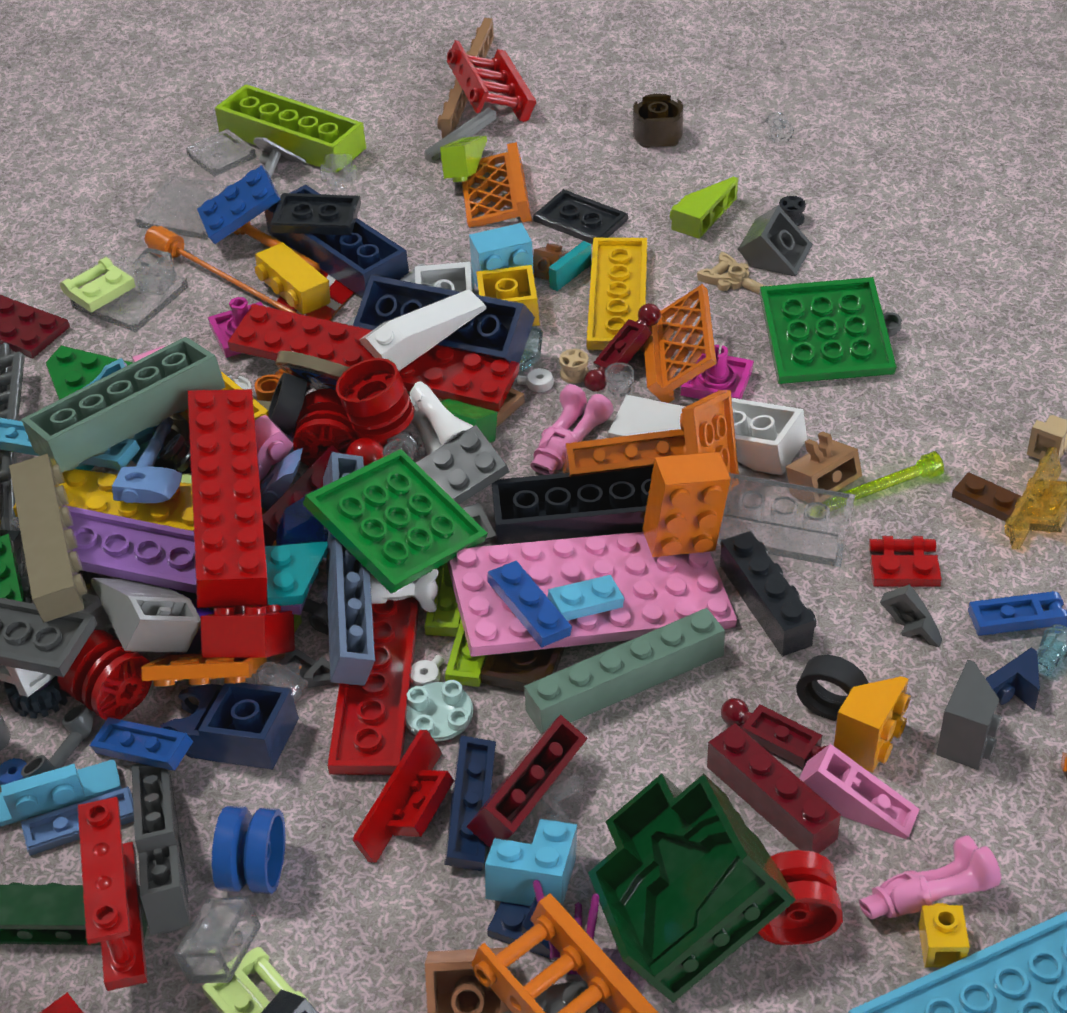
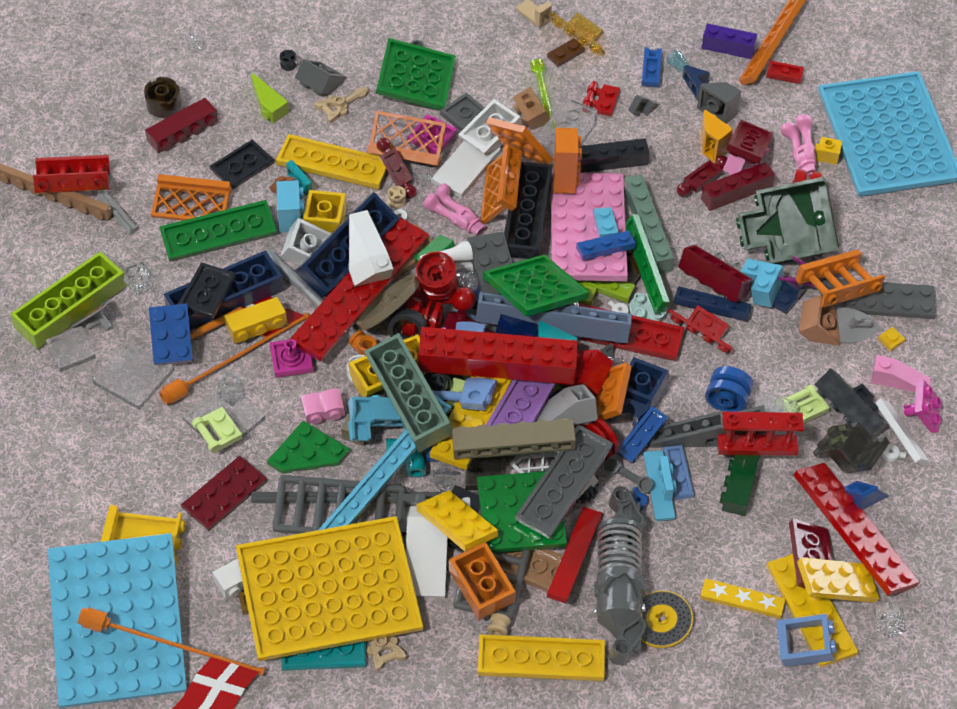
camera: 80 degrees left, 10 degrees up
(439, 211) = (217, 230): none -> green plate
(462, 157) = (158, 206): lime slope -> none
(505, 680) = (647, 265): none -> green plate
(621, 149) = (181, 125): none -> dark red brick
(786, 393) = (461, 111): none -> dark grey plate
(829, 669) = (687, 145): black tyre -> none
(881, 778) = (749, 142): none -> dark red plate

